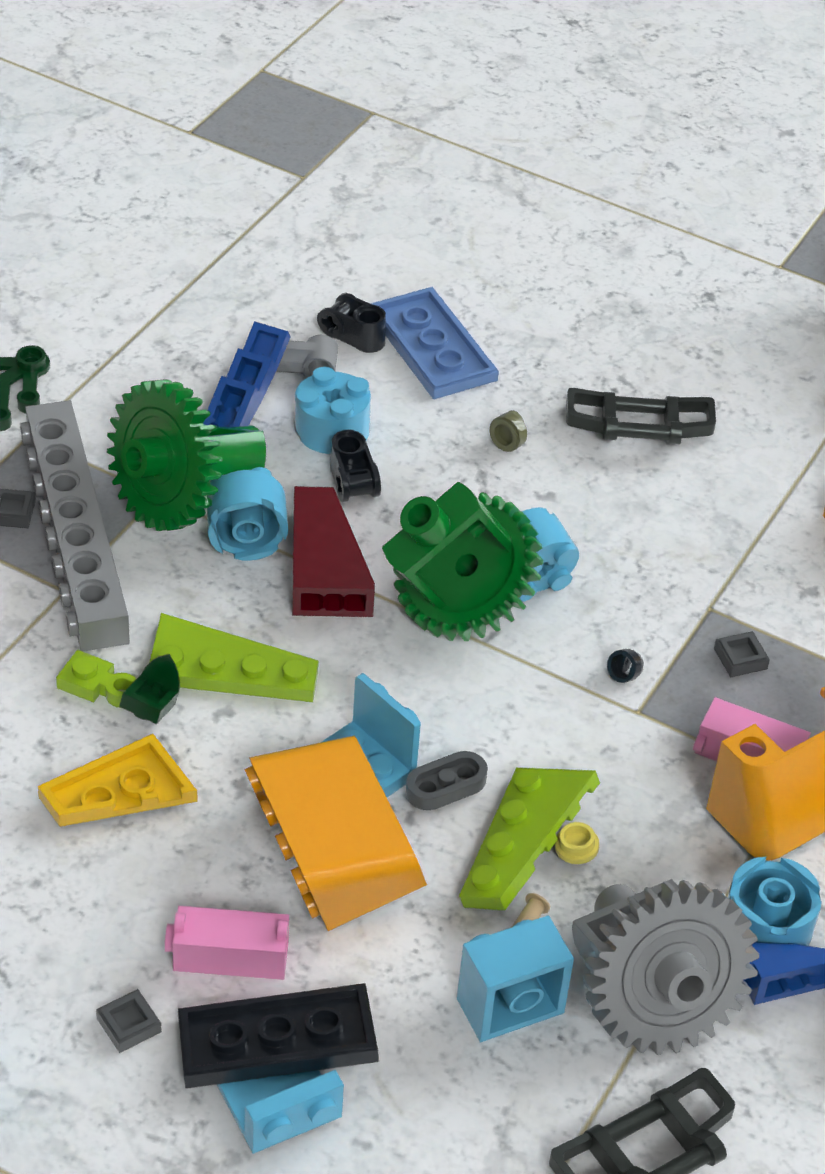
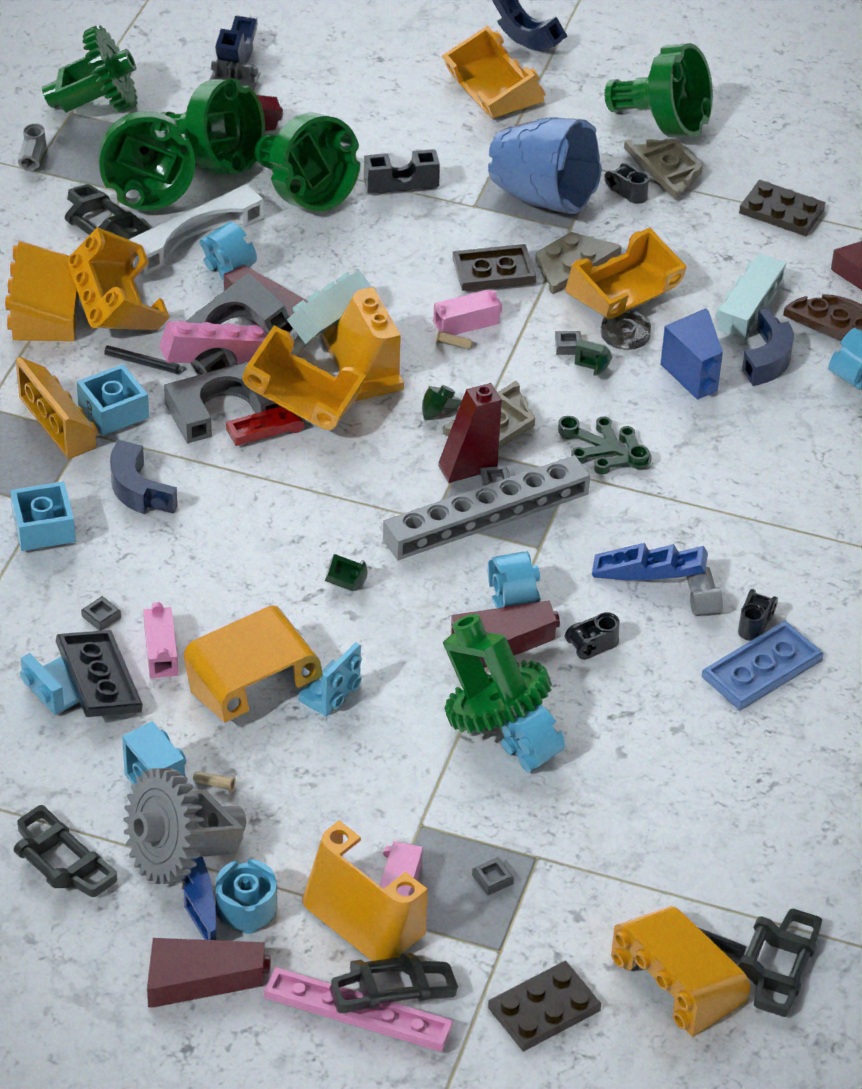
camera: 80 degrees right, 0 degrees up
(92, 676) = (357, 544): lime plate -> none
(118, 784) = (270, 573): yellow wing -> none
(170, 455) = (549, 534): green piece -> none
(233, 664) = (391, 606): lime wing -> none
(331, 404) = (646, 613): medium azure brick -> none
(441, 782) = (322, 729): dark grey plate -> none
(508, 431) = (669, 716): olive tile -> none
(522, 830) = (295, 766): lime wing -> none
(577, 843) = (285, 797): light yellow plate -> none
(609, 426) = (702, 775): pearl dark grey bar -> none
(620, 662) = (455, 809): black hinge -> none

